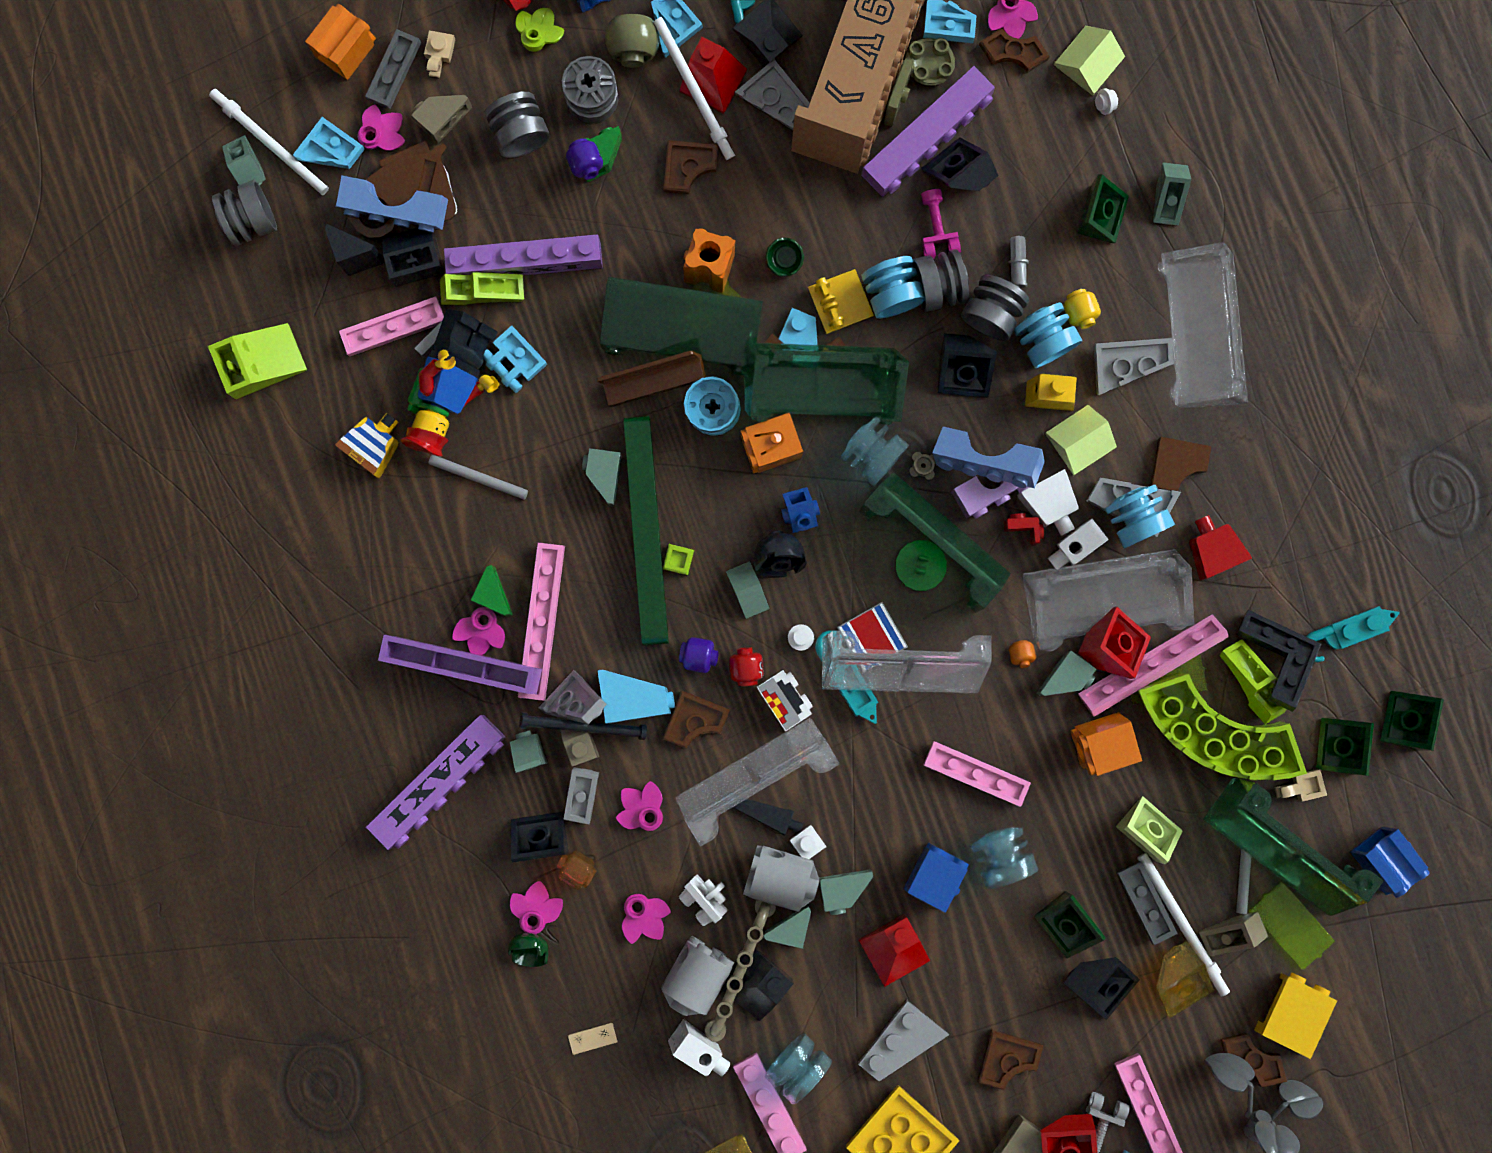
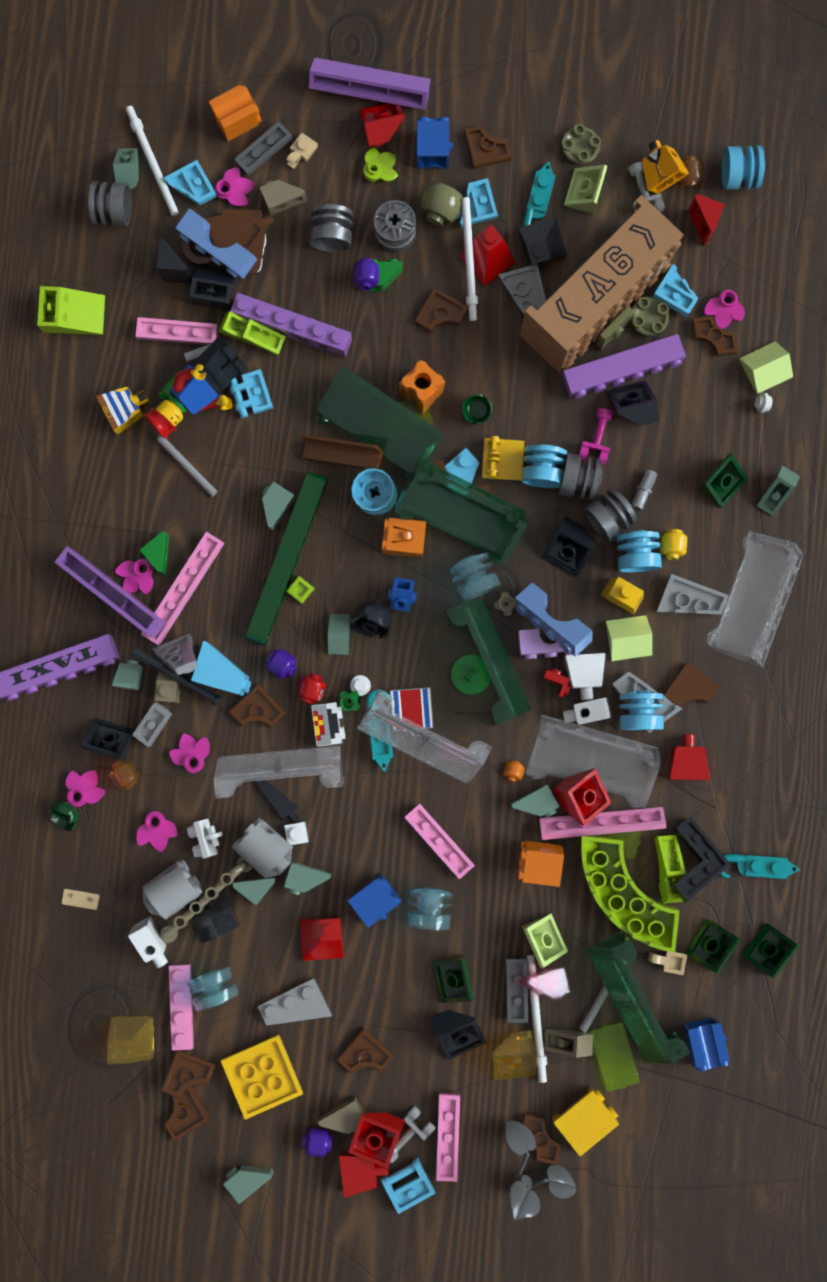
camera: 30 degrees right, 0 degrees up
(796, 668) = (348, 706): none -> green plate
(1179, 877) = (548, 983): none -> slope

